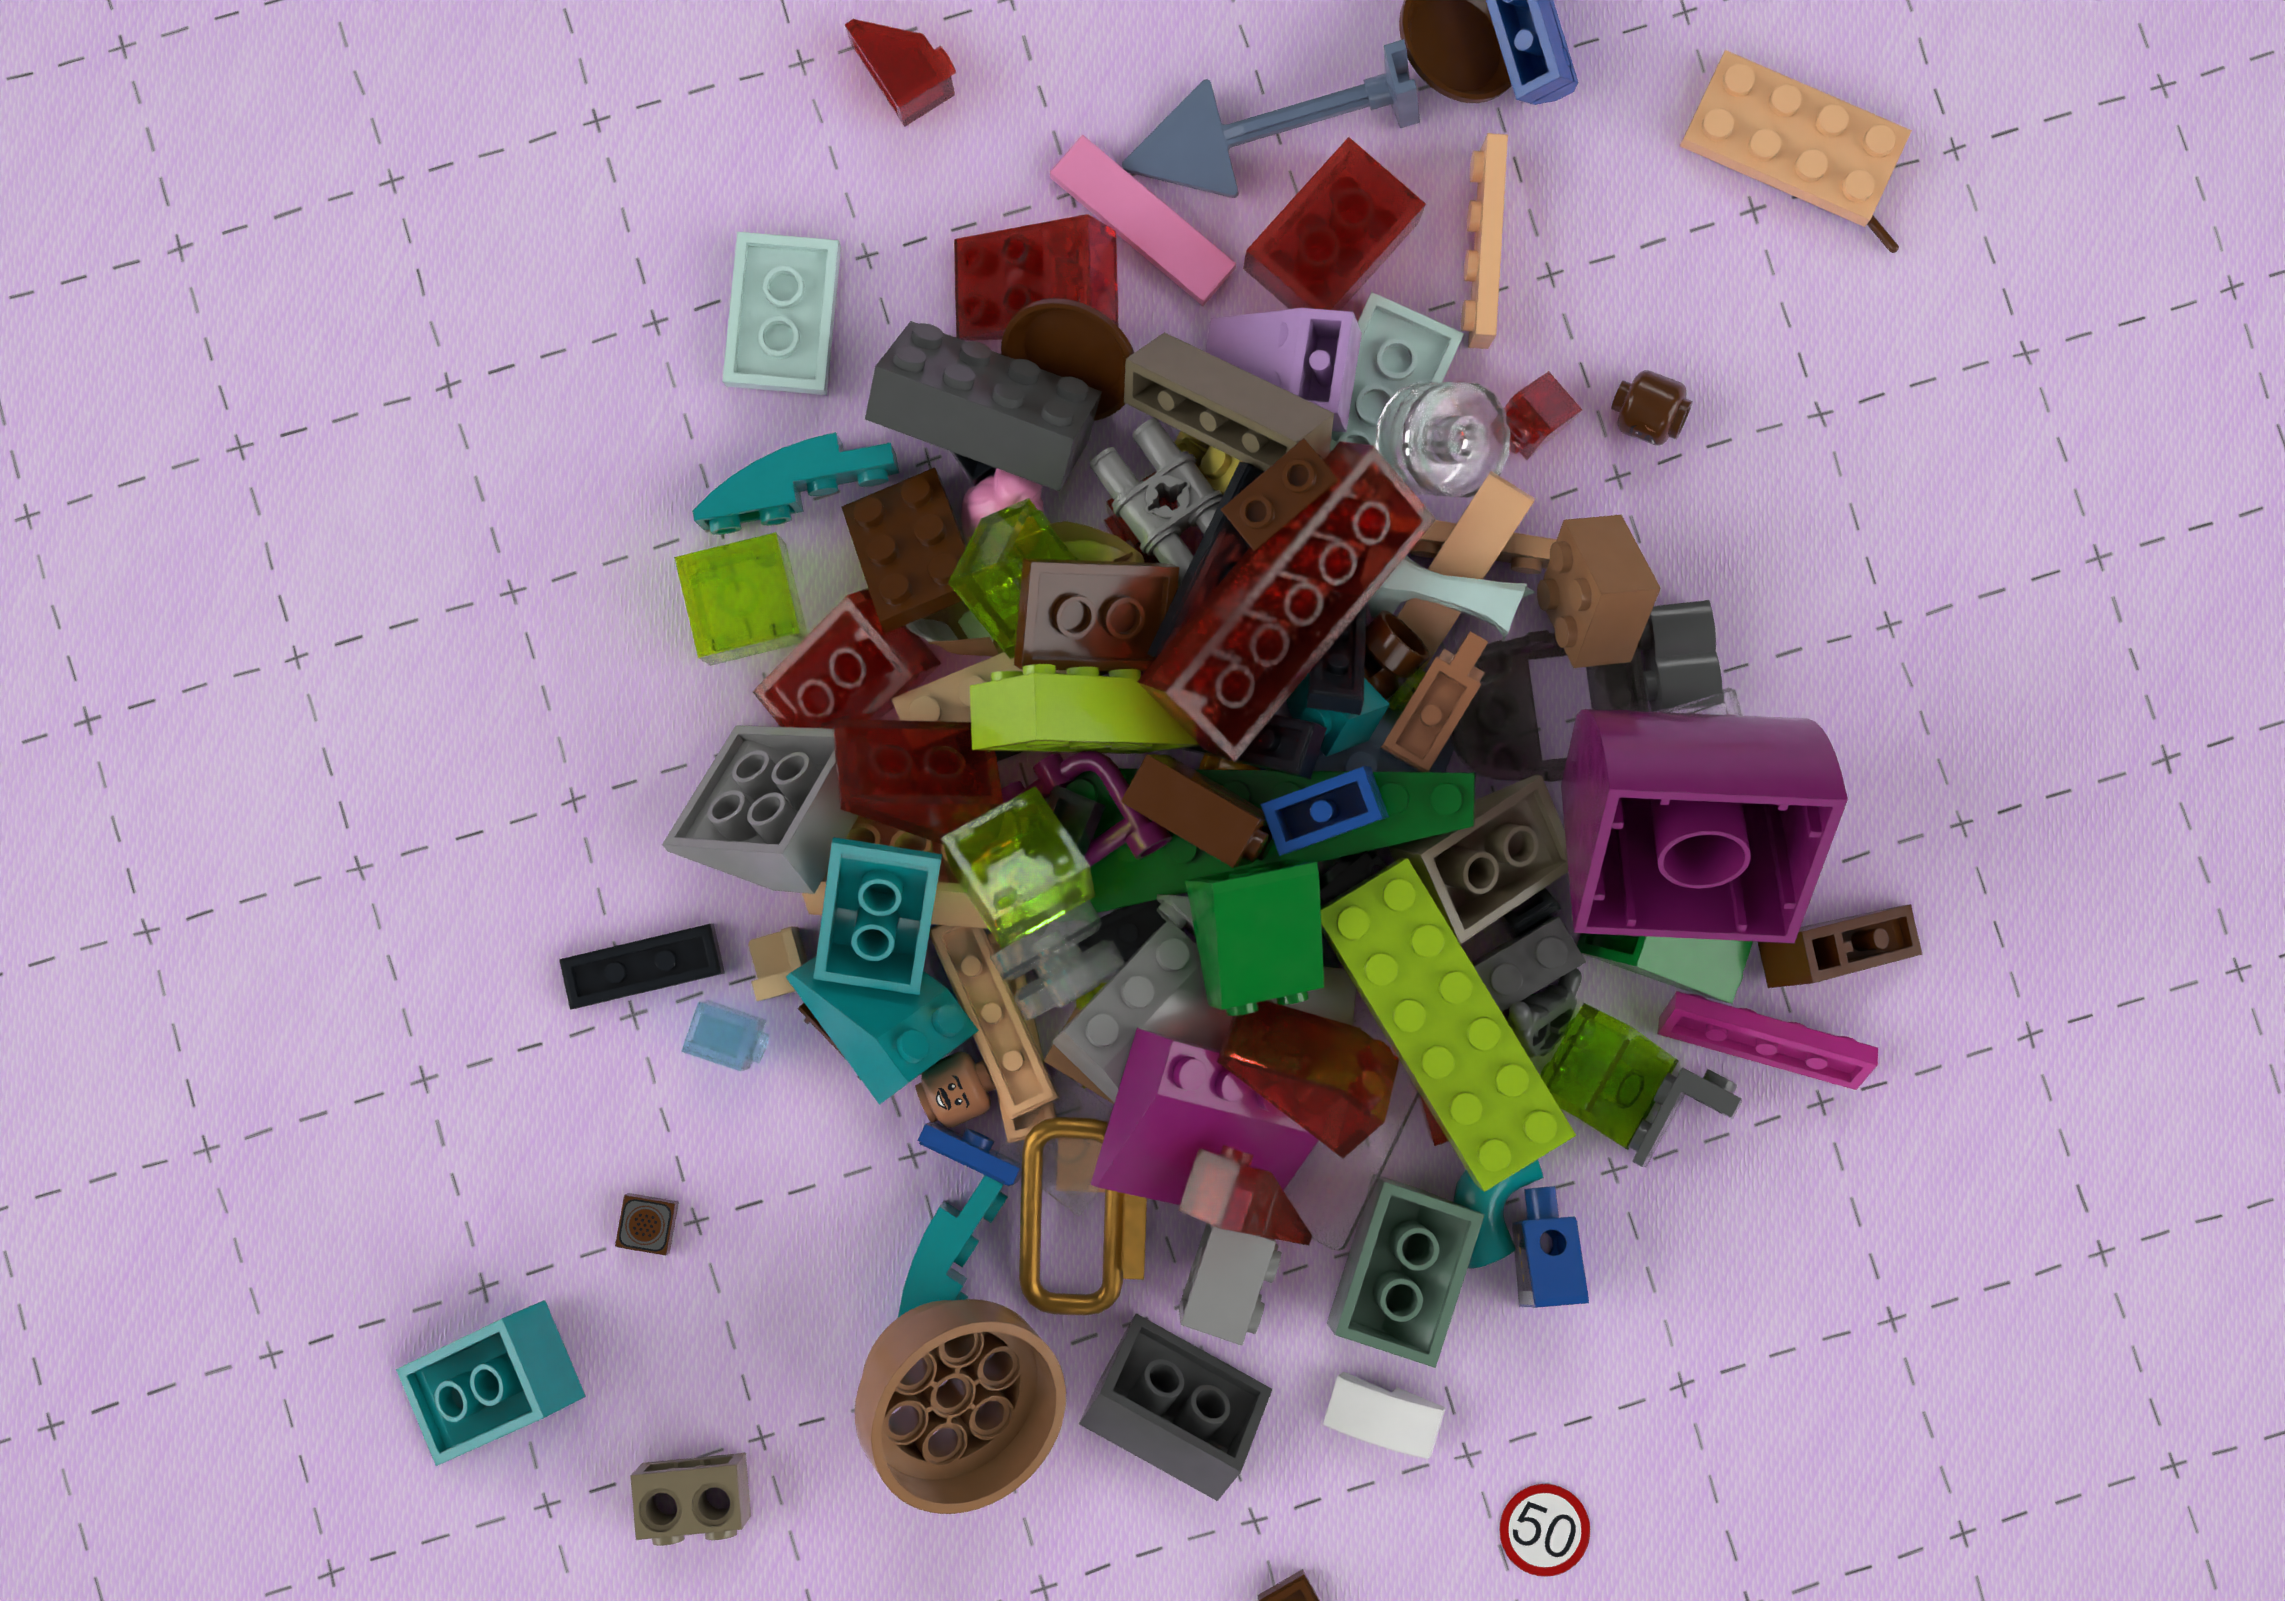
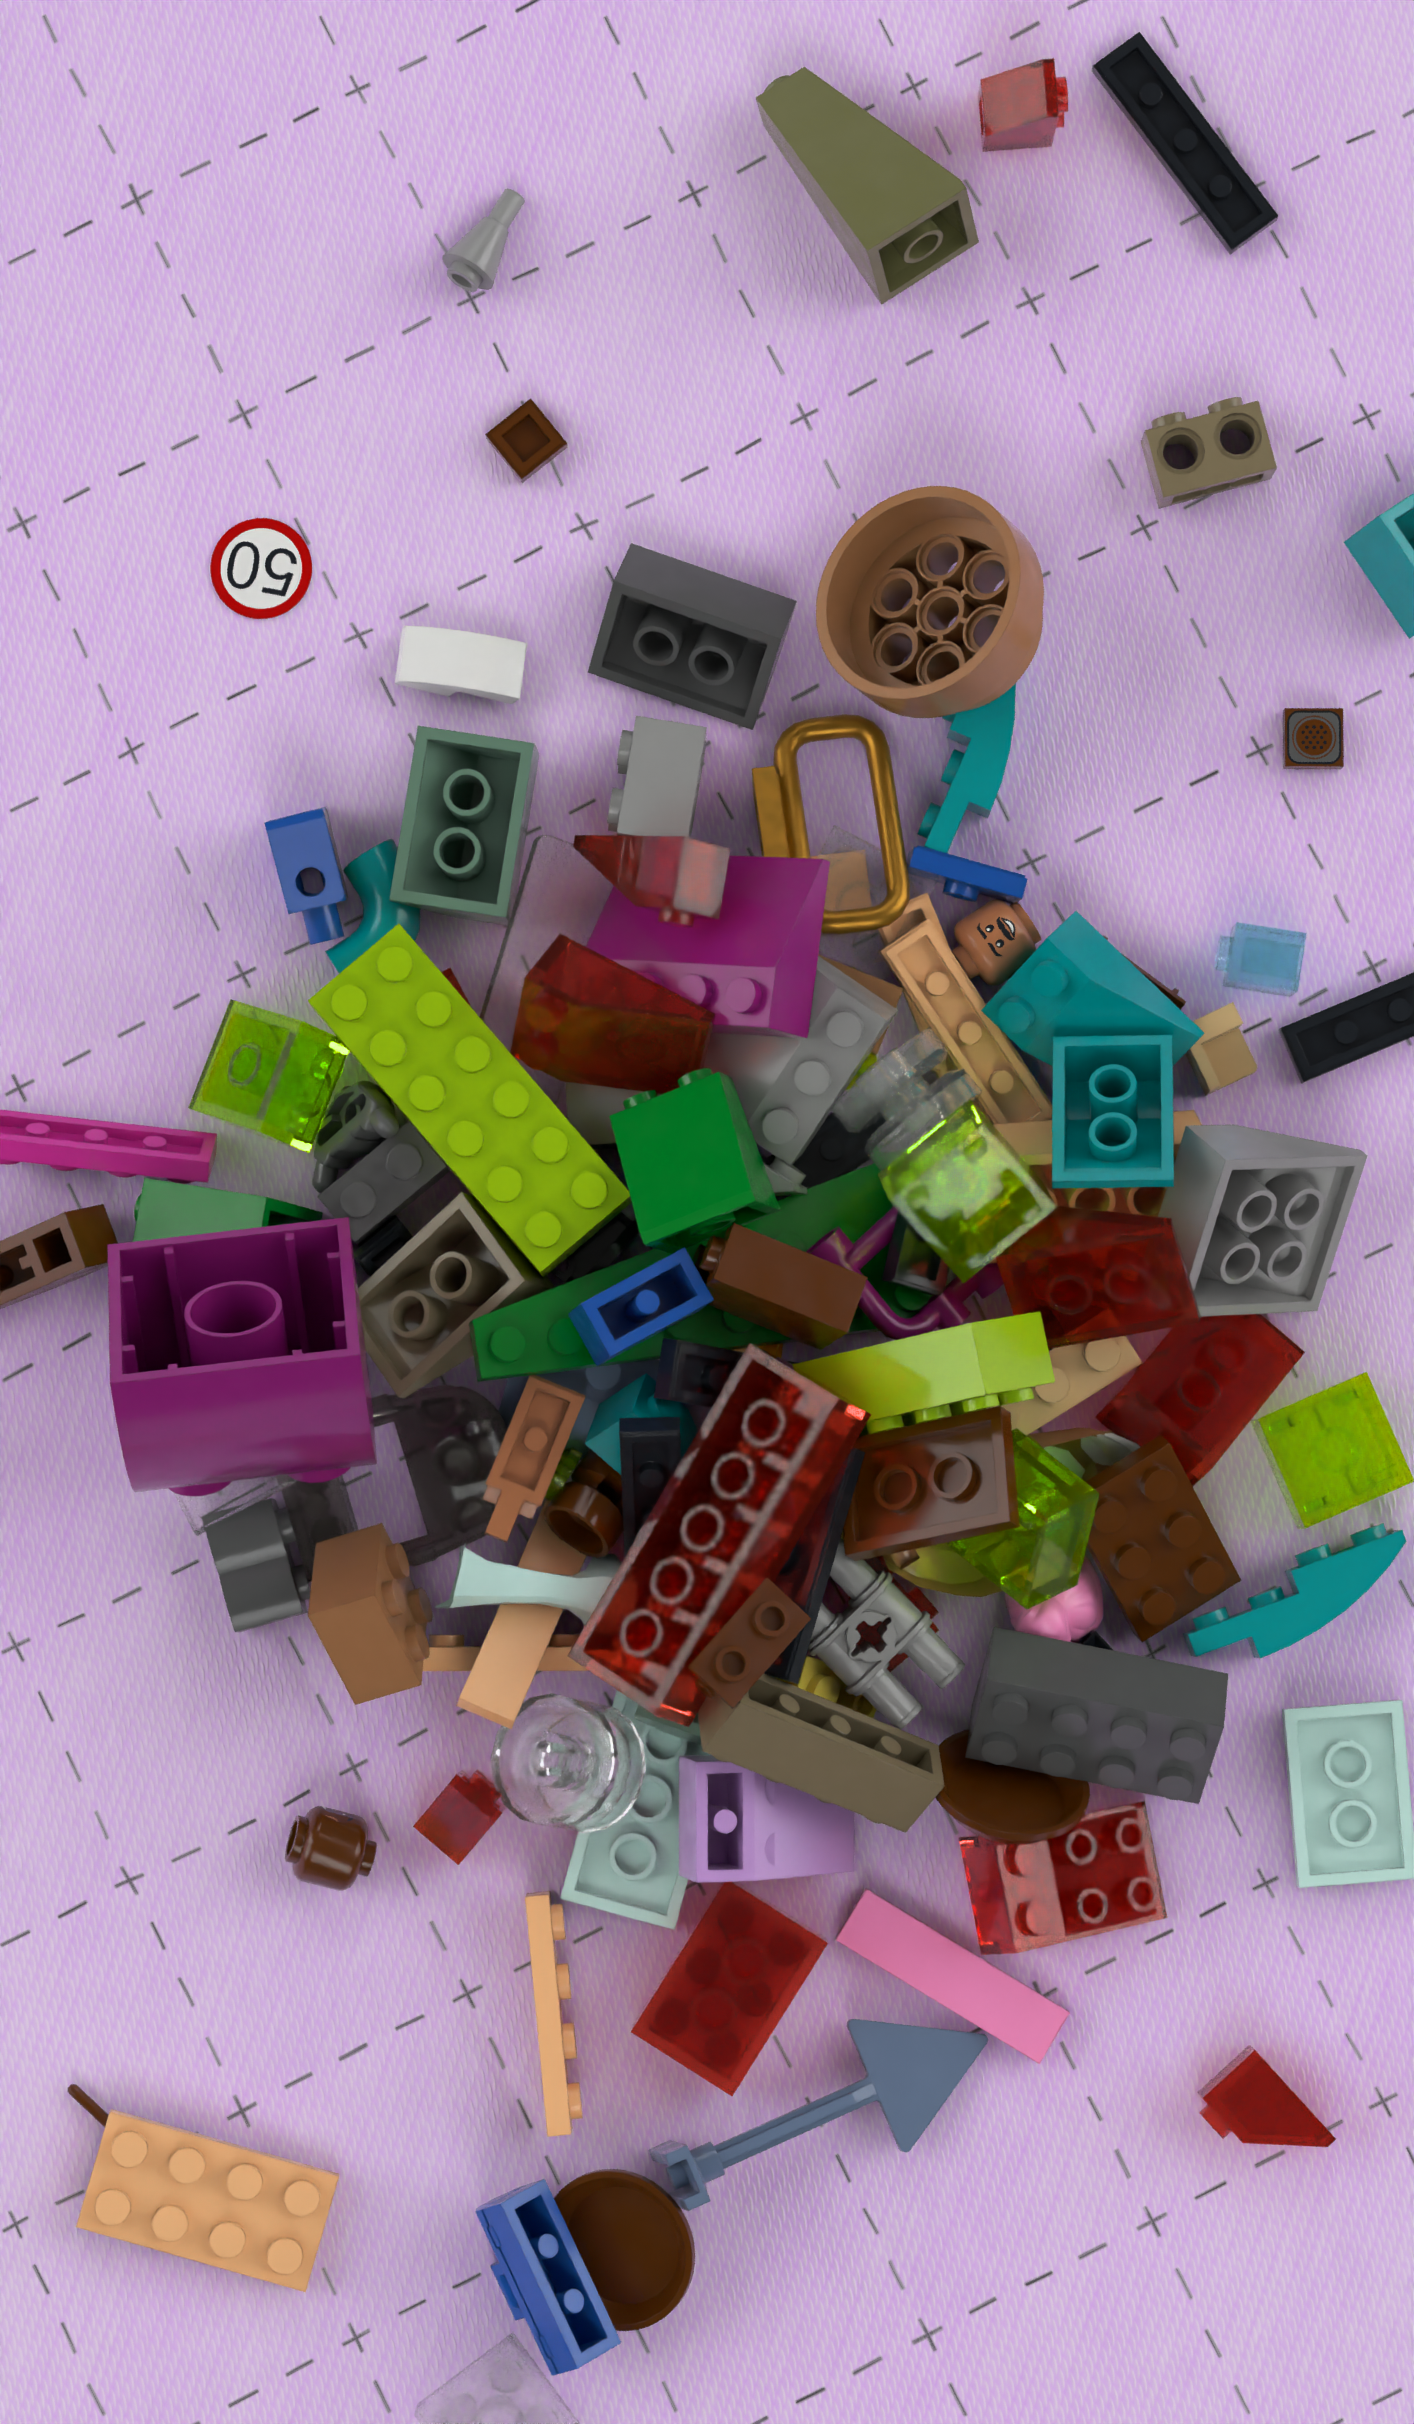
camera: 175 degrees right, 0 degrees up
(1710, 1090) = (198, 1065): dark grey bracket -> none

